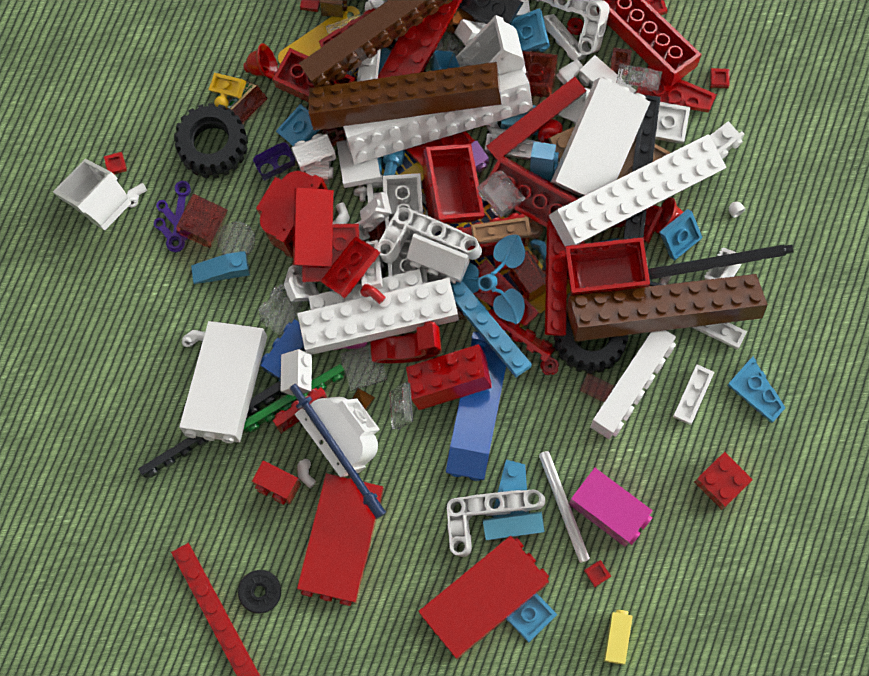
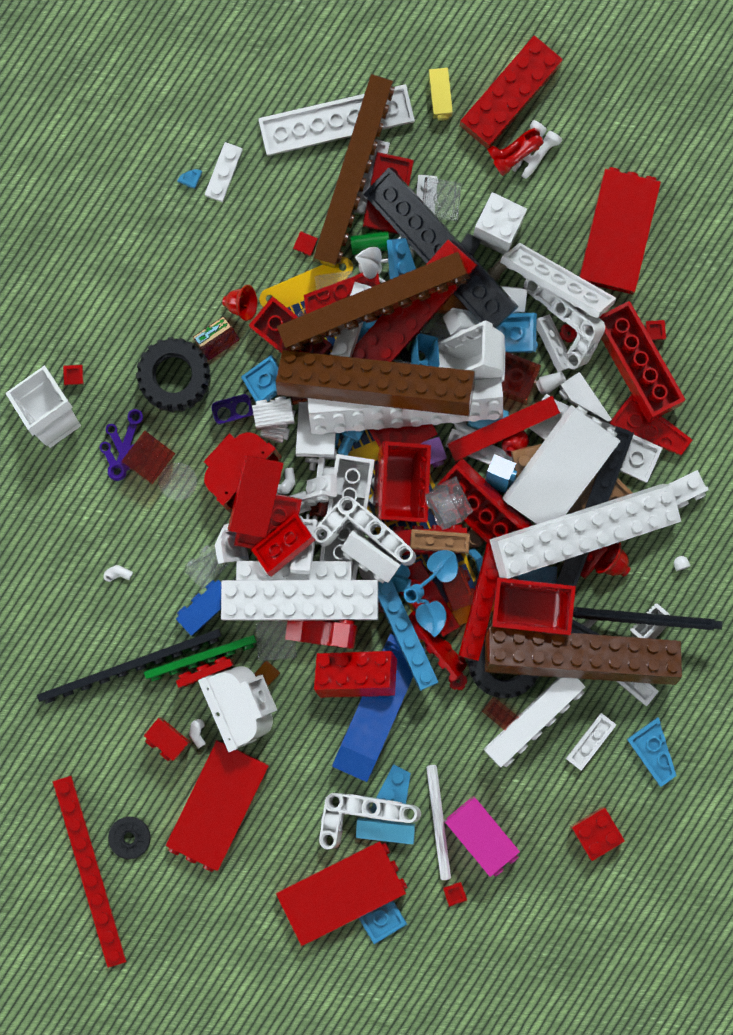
camera: 10 degrees right, 10 degrees up
(133, 194) = (85, 411): white arm -> none
(221, 268) = (156, 508): dark azure slope -> none
(223, 382) = (136, 628): white brick -> none
(226, 87) = (202, 320): yellow plate -> none
(296, 369) = (208, 637): white brick -> none
(369, 290) = (296, 575): red arm -> none
(369, 498) = (252, 780): dark blue bar -> none
(401, 406) = (303, 691): clear tile -> none
(618, 57) = (604, 383): clear red brick -> none
(618, 637) = (459, 960): light yellow brick -> none
(639, 77) = (617, 409): clear slope -> none
(681, 234) = (618, 579): dark azure tile -> none
(719, 78) = (701, 421): red tile -> none

